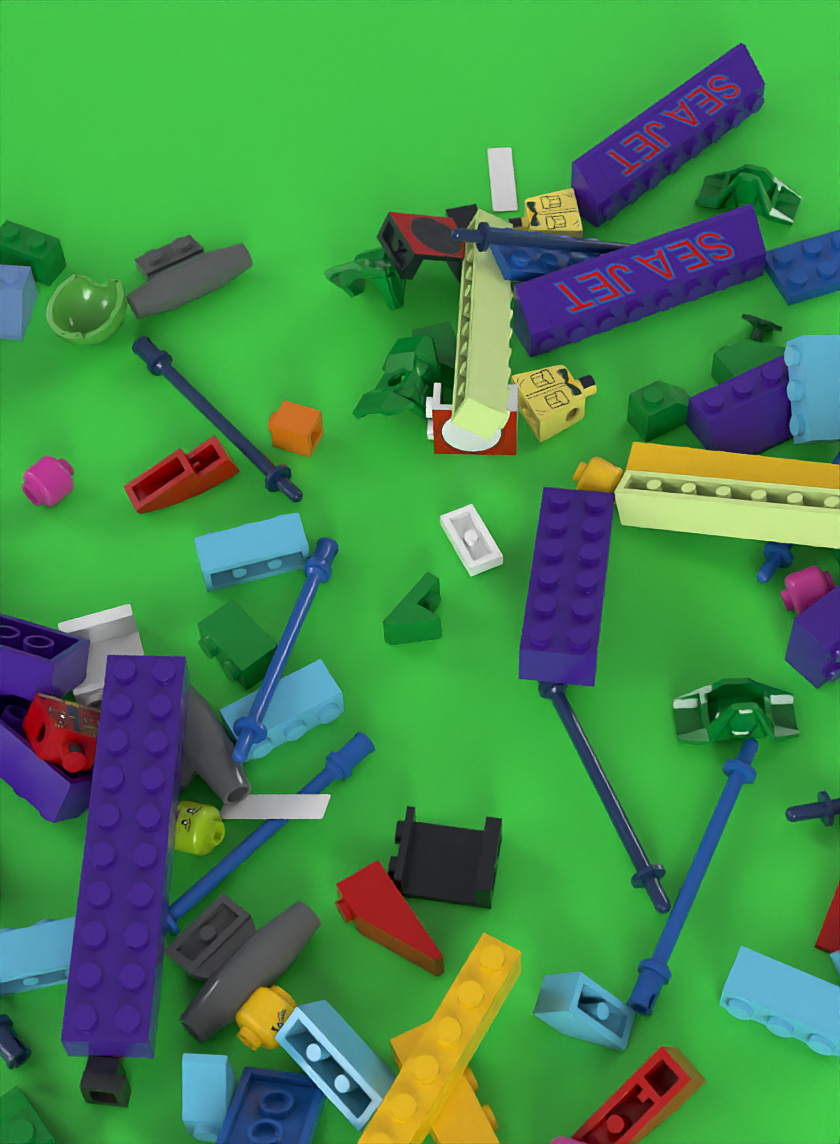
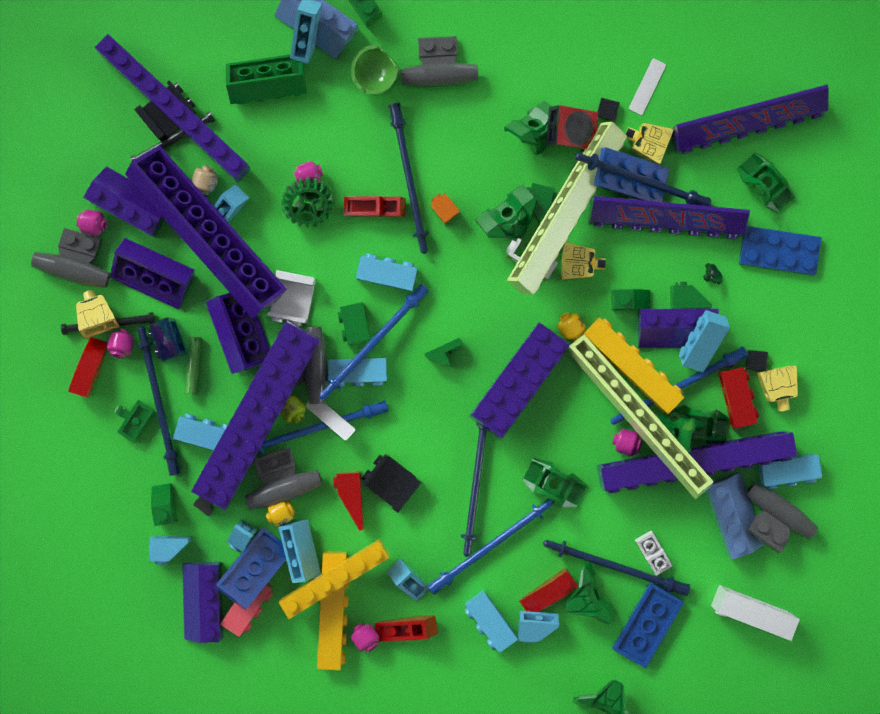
camera: 25 degrees right, 35 degrees up
(62, 732) = (254, 337): red torso -> none
(76, 514) = (310, 192): none -> green gear
(471, 540) = (492, 323): white plate -> none

